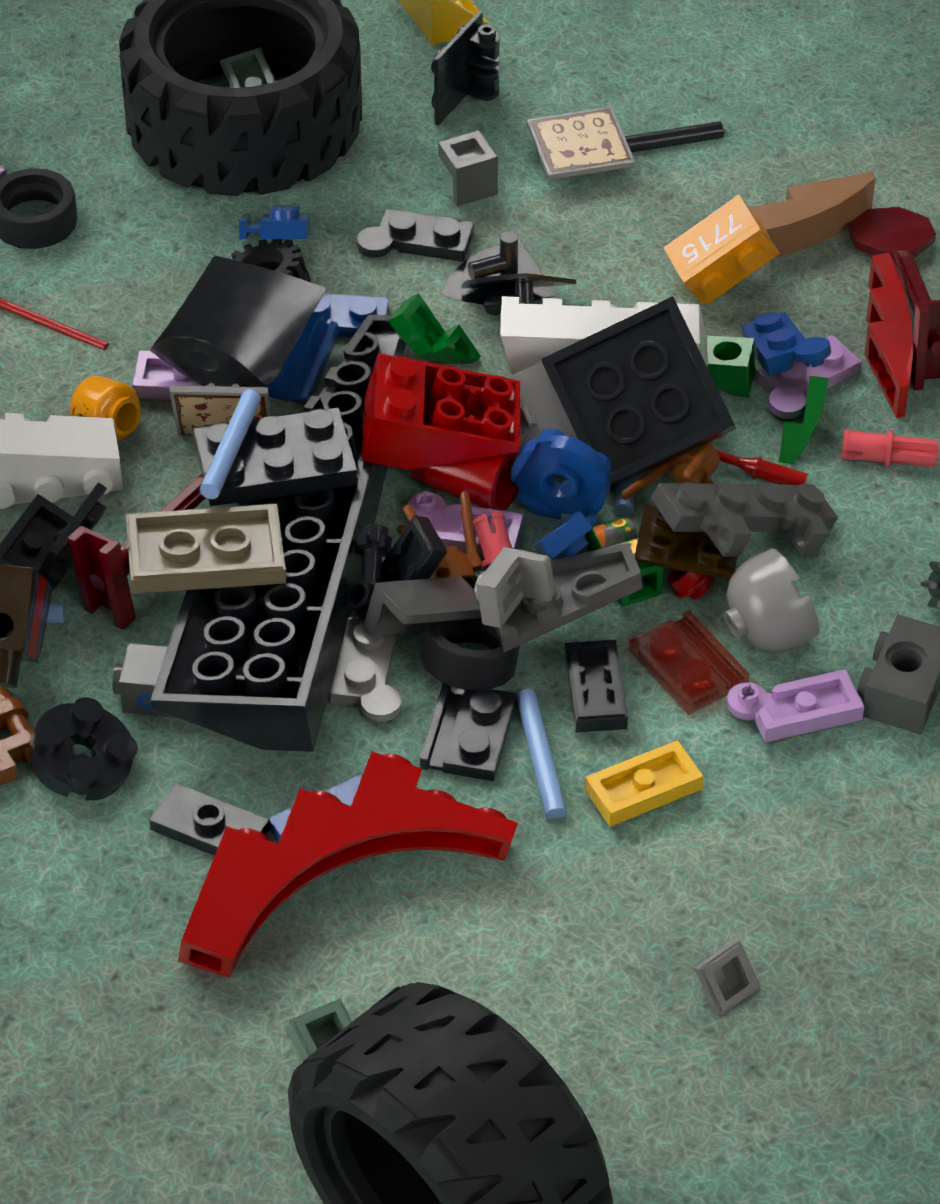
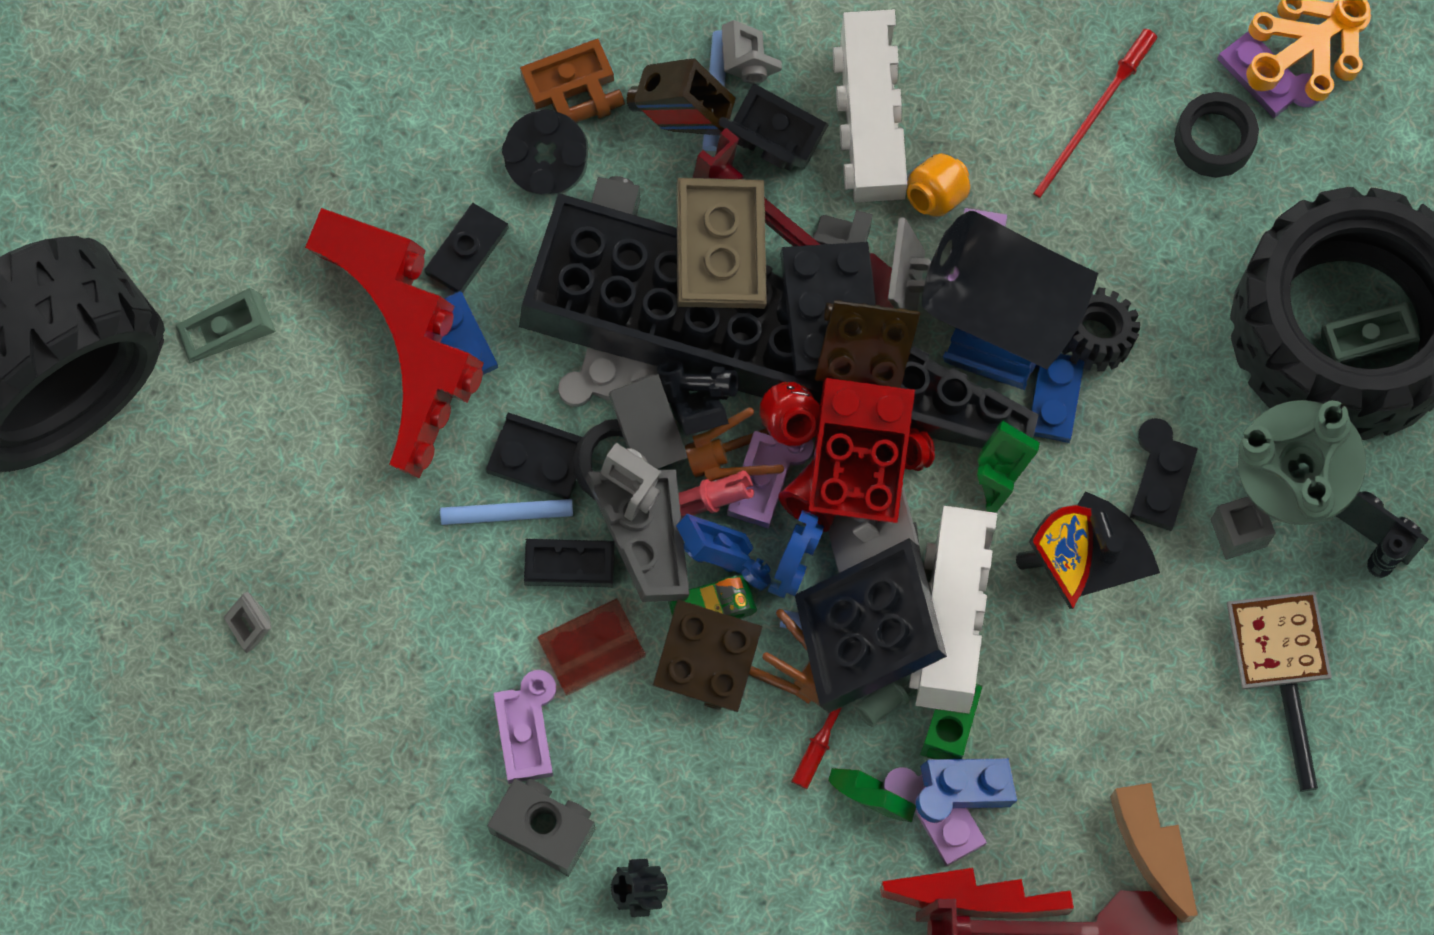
camera: 95 degrees right, 25 degrees up
(169, 473) = (835, 230): none -> dark grey panel
(230, 444) = (825, 263): light blue bar -> none
(281, 223) = (1163, 340): blue plate -> none
(311, 399) = (866, 343): none -> dark brown hinge
(402, 480) = (790, 413): none -> red head
(413, 89) = (1295, 435): none -> sand green piece
(643, 783) = (456, 587): yellow plate -> none
(721, 250) = (1089, 746): light orange brick -> none
(735, 510) = (727, 677): dark grey hinge -> none
(768, 605) = (622, 714): light grey cylinder -> none
(889, 448) = (829, 868): coral axle -> none

